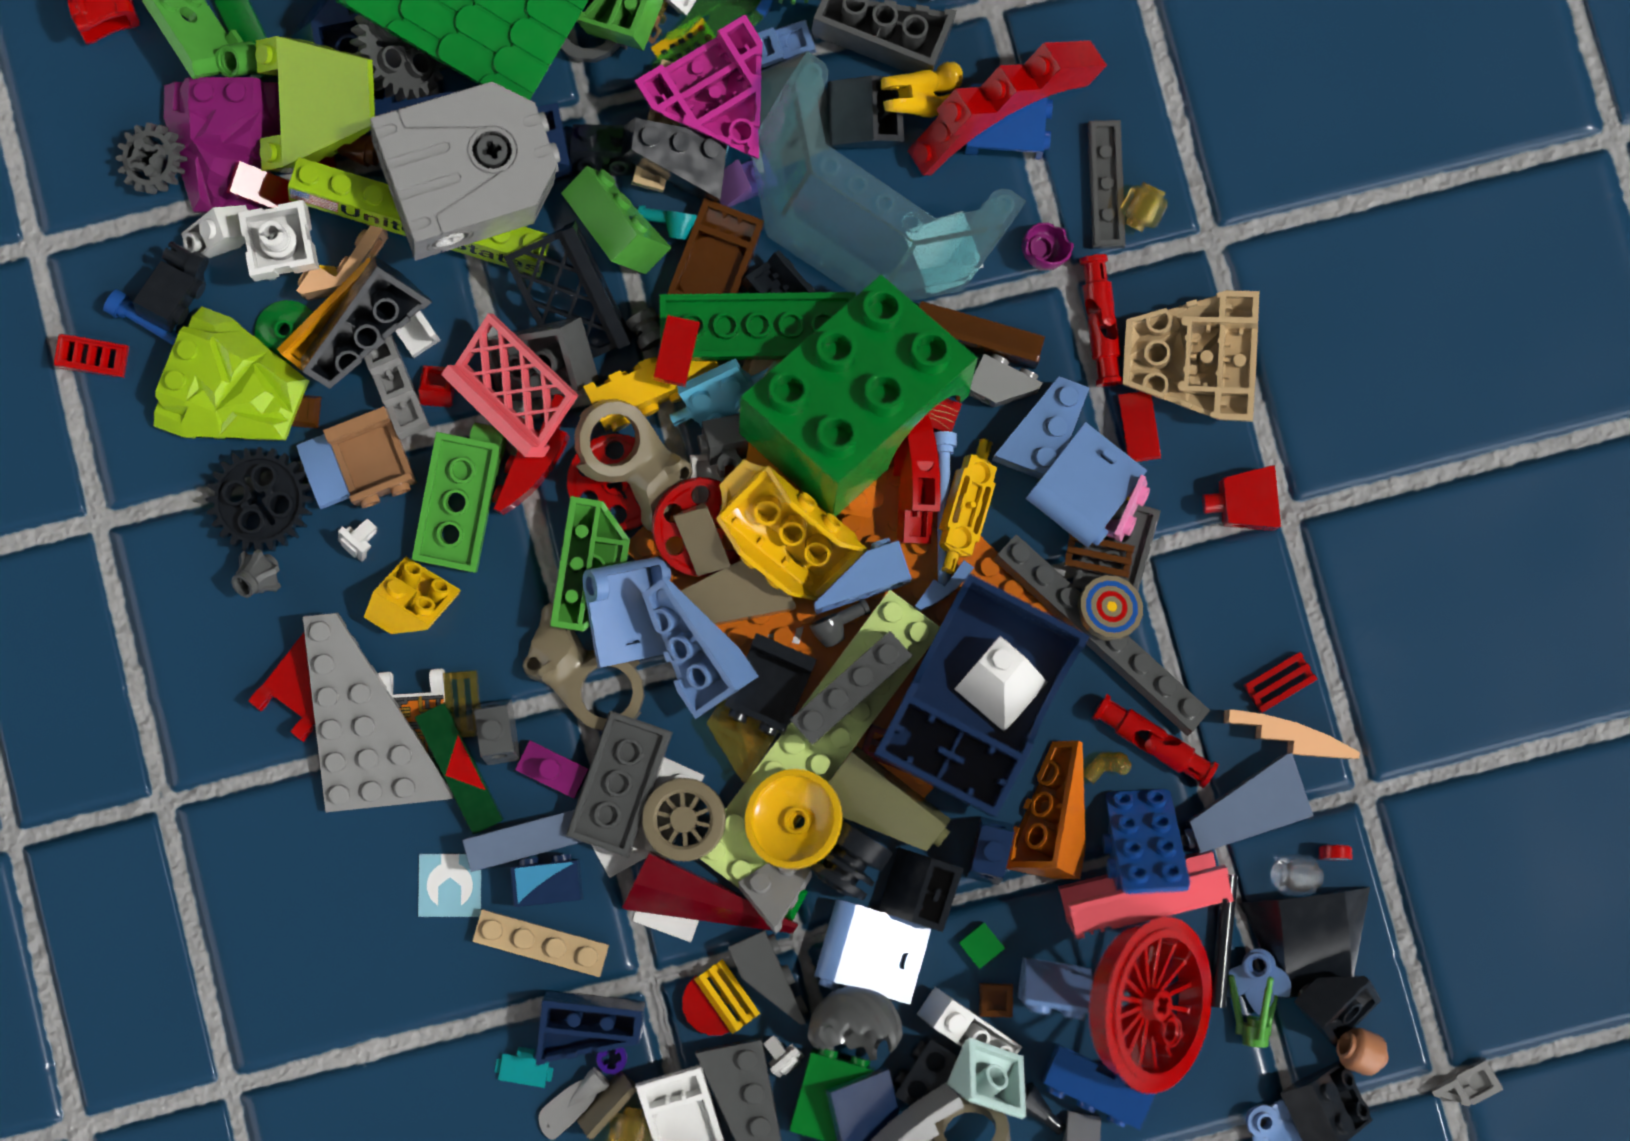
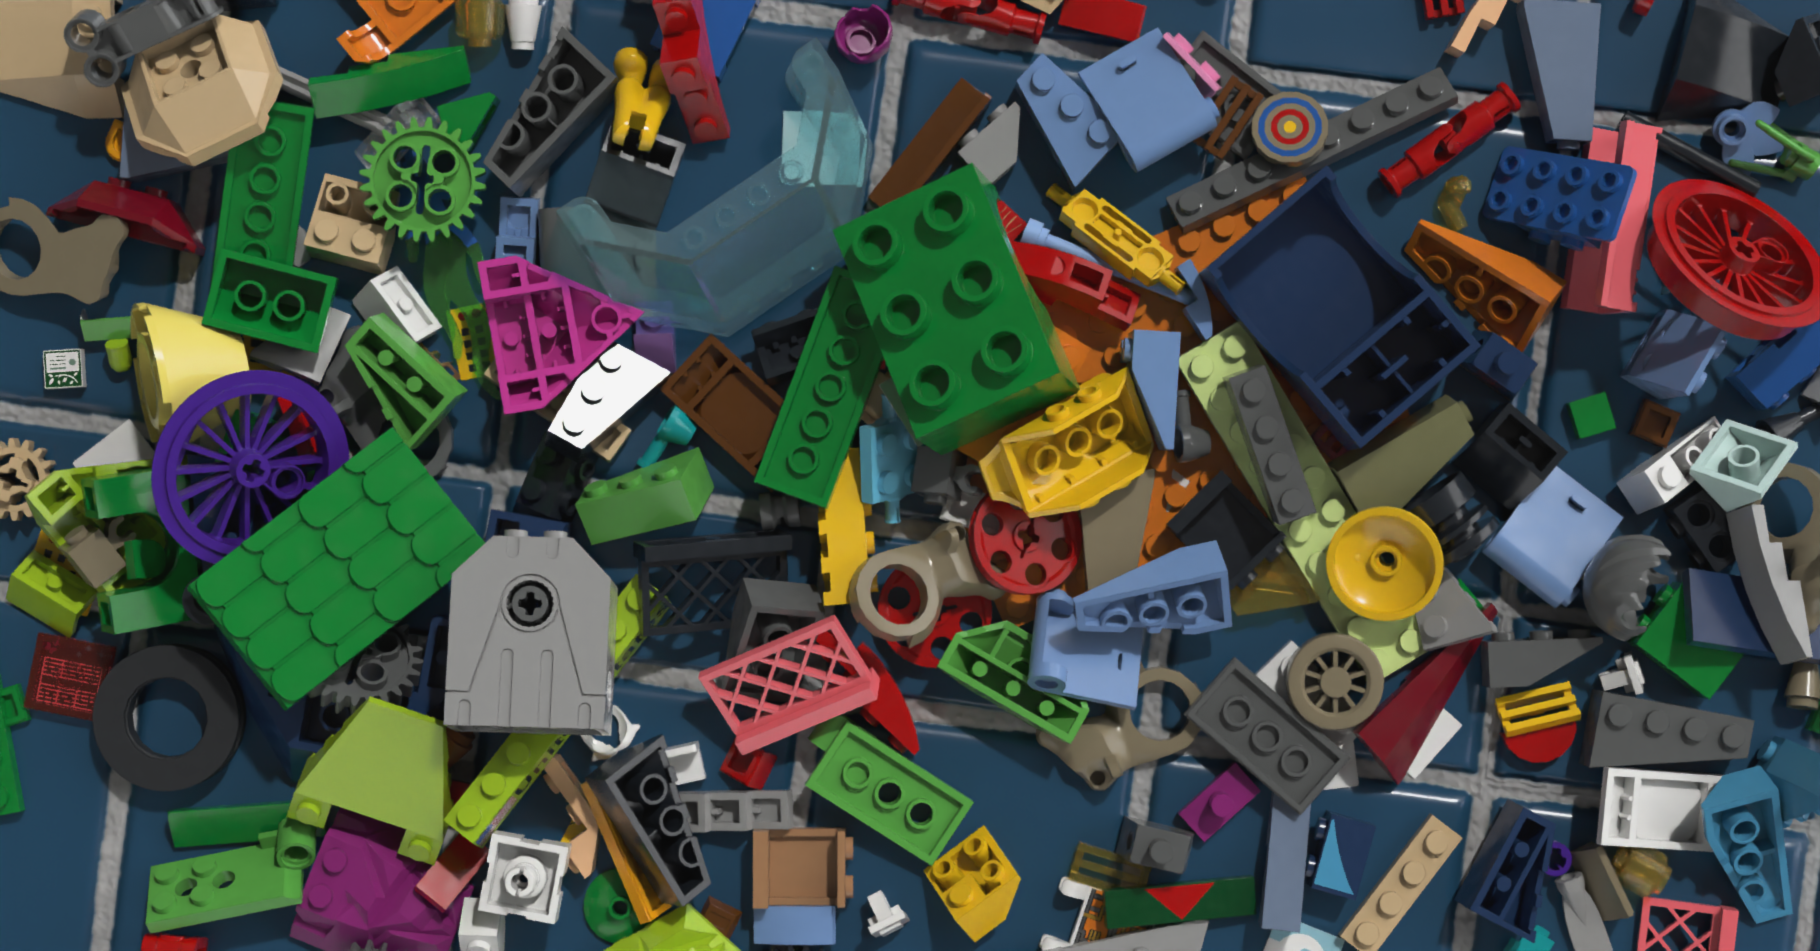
camera: 70 degrees left, 5 degrees up
(425, 281) = (626, 730): none -> white piece
(676, 351) = (827, 488): red tile -> none
(701, 540) = (1042, 542): dark tan slope -> none
(1001, 684) = (1328, 281): white slope -> none
(1297, 875) = (1653, 47): clear head -> none

